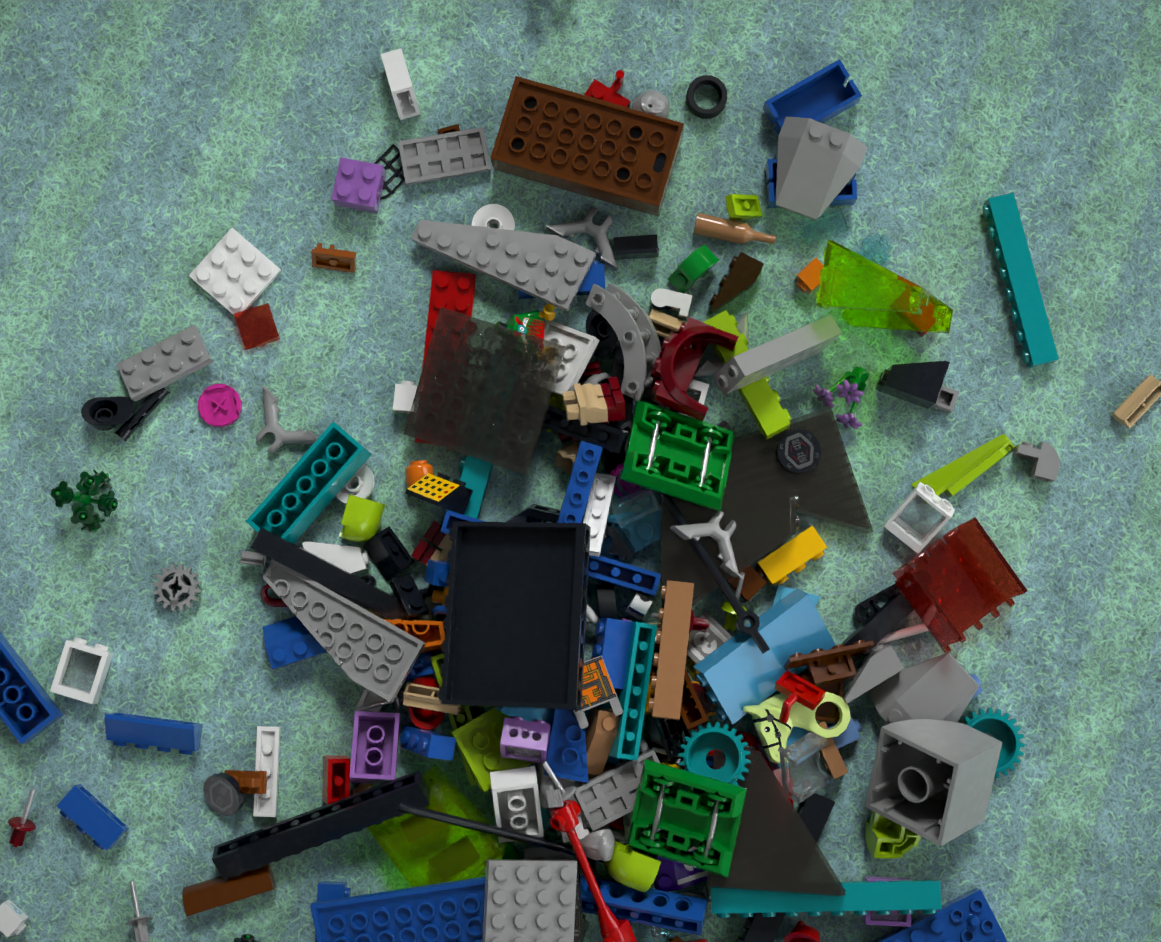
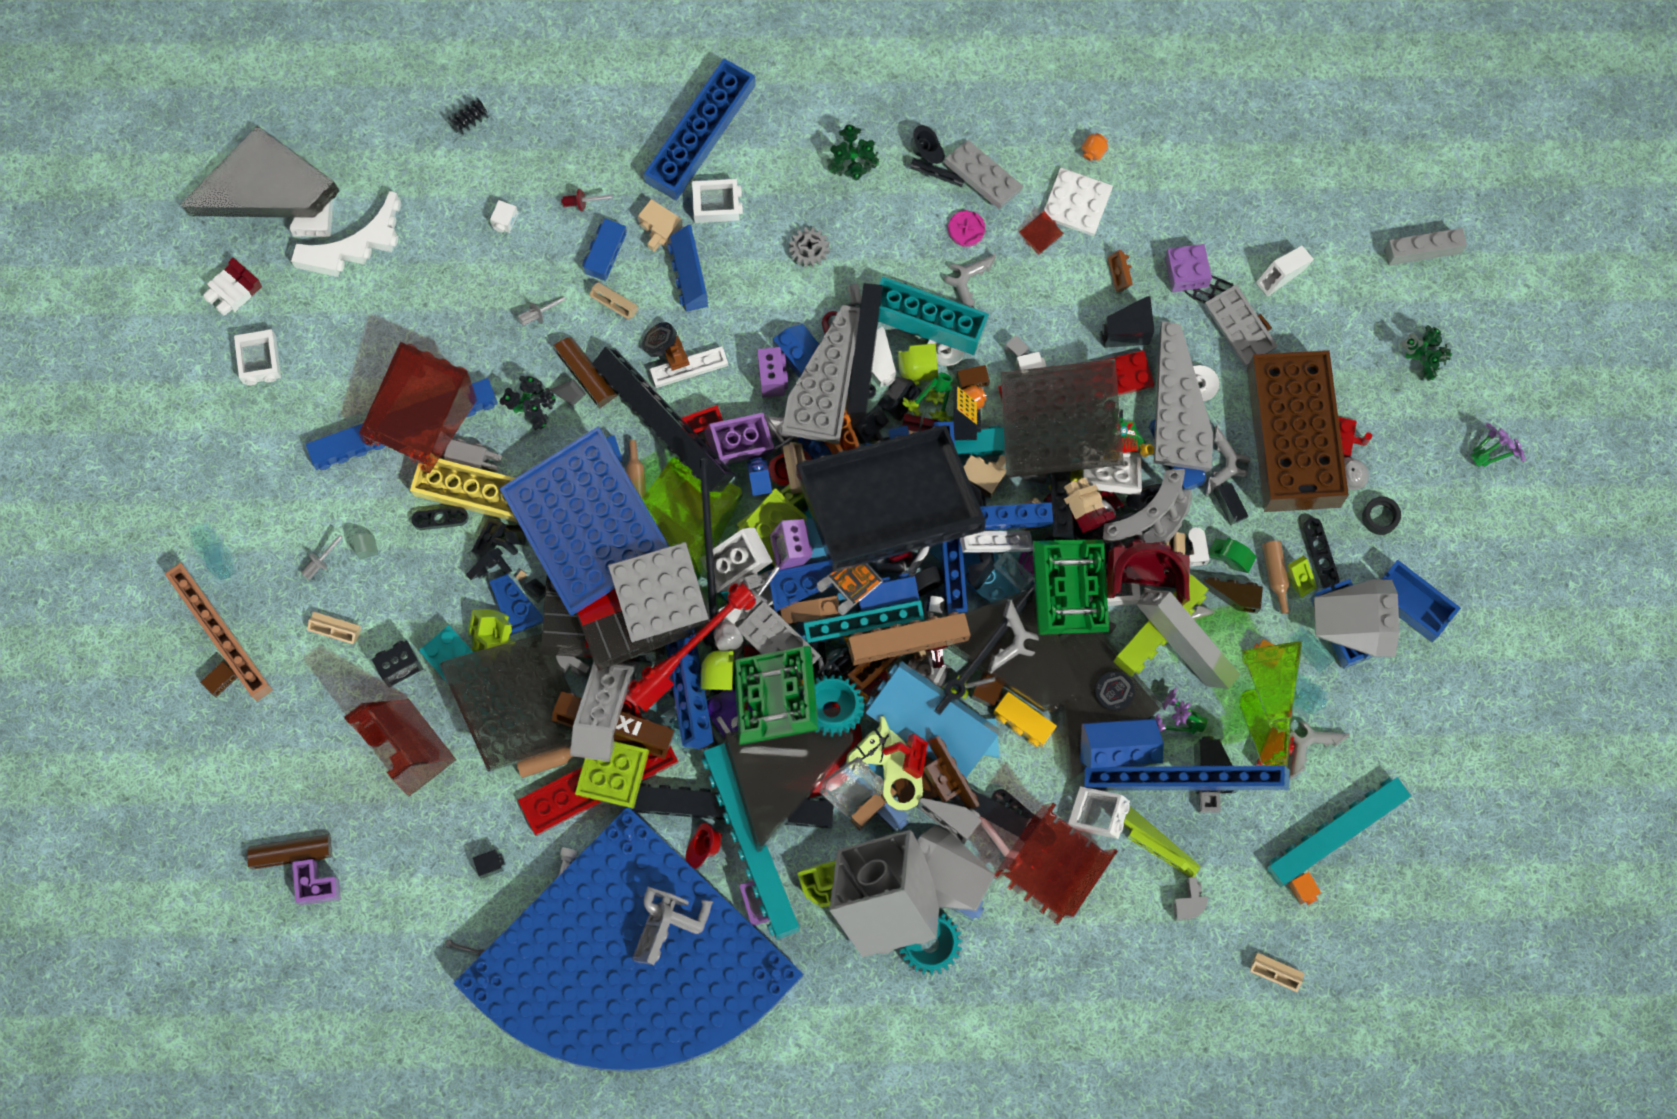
camera: 70 degrees right, 10 degrees down
(83, 742) = (660, 222): none -> tan hinge
(157, 828) = (615, 298): none -> tan piece
(179, 229) = (1094, 147): none -> orange head
(246, 914) = (569, 392): none -> dark grey piece
(310, 684) = (772, 372): none -> medium lavender piece
(372, 875) = (636, 469): none -> medium nougat piece
(380, 404) = (1017, 346): none -> light grey slope
(396, 464) = (973, 376): none -> reddish brown piece
(398, 514) = (940, 384): none -> plant
(403, 274) = (1129, 325): none -> black slope
(512, 497) = (985, 476): none -> tan hinge
(724, 172) = (1319, 554): none -> black beam
(858, 467) = (1121, 743): none -> blue slope
(912, 267) = (1311, 737): none -> light grey piece
(925, 415) = (1188, 778): none -> blue brick
(1068, 338) = (1305, 889): none -> orange brick

